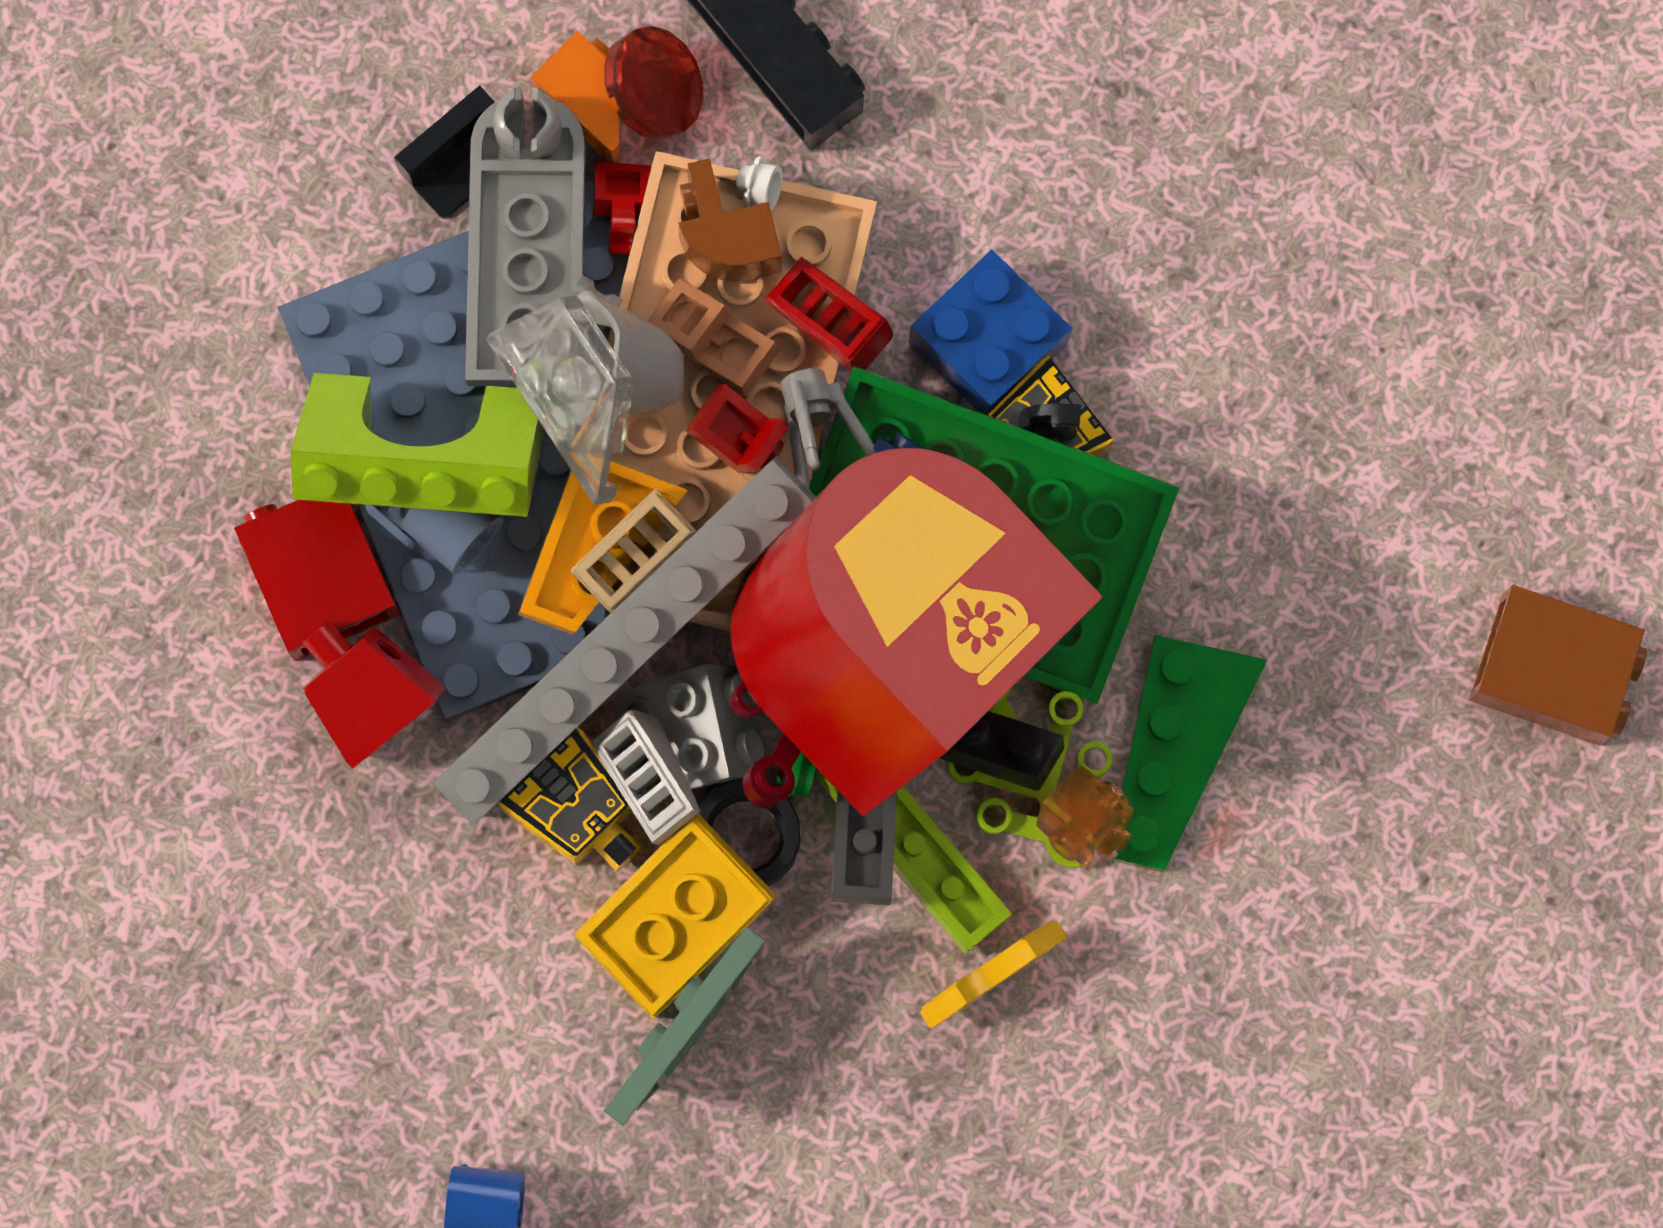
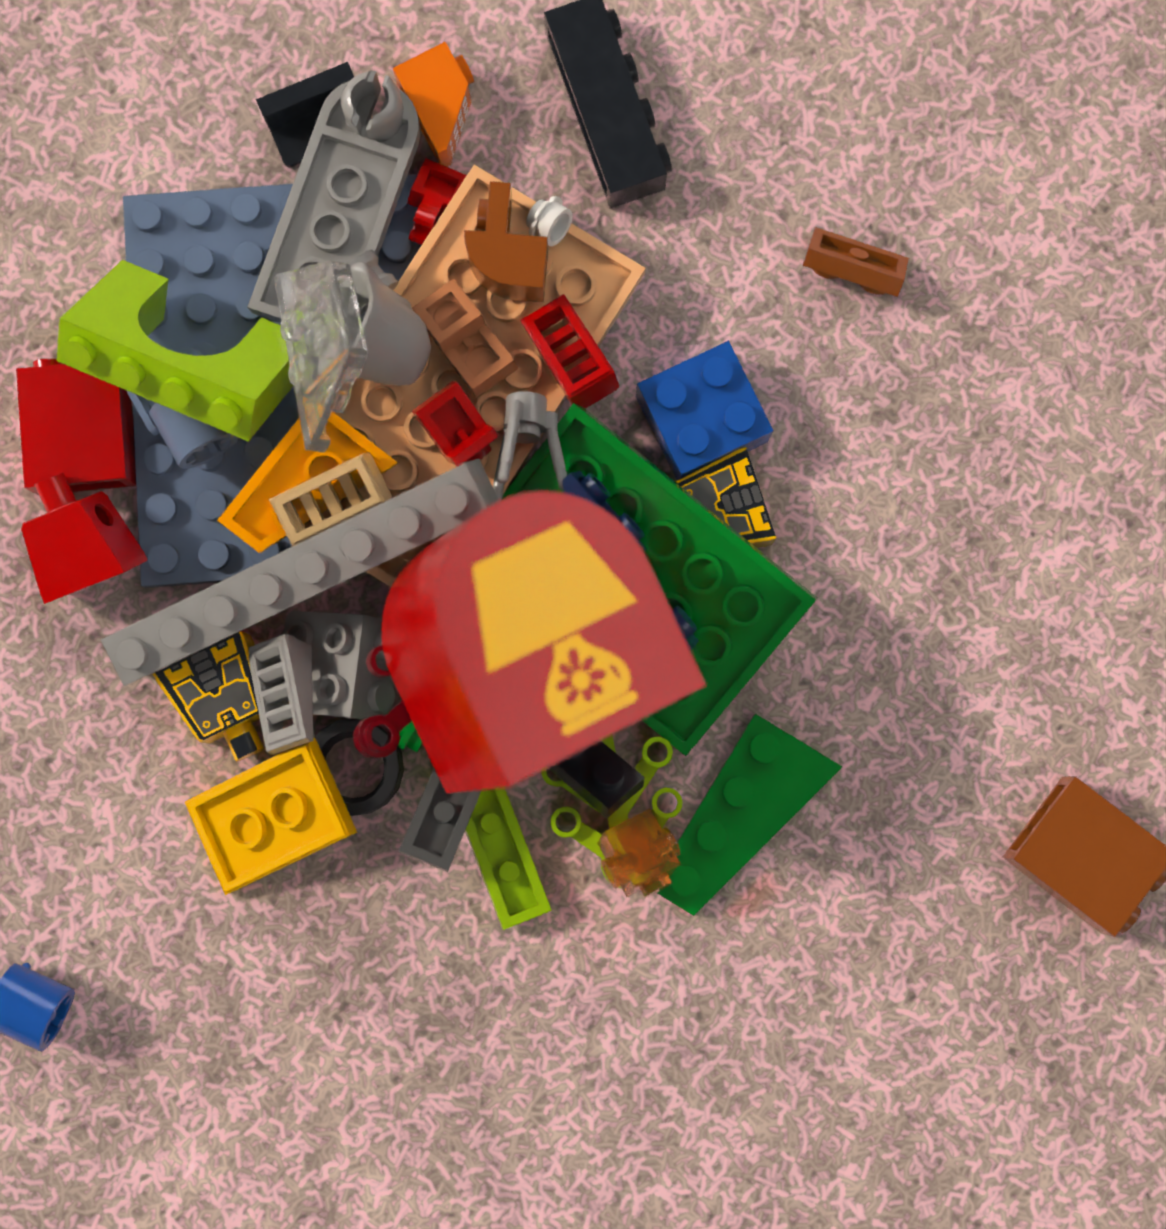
camera: 25 degrees right, 5 degrees up
(654, 82) = (495, 106): clear red tile -> none
(698, 1006) = (226, 924): sand green wing -> none
(992, 973) = (517, 956): yellow tile -> none
(1052, 420) = (727, 504): black tile -> none
(1081, 123) = (857, 262): none -> dark orange plate

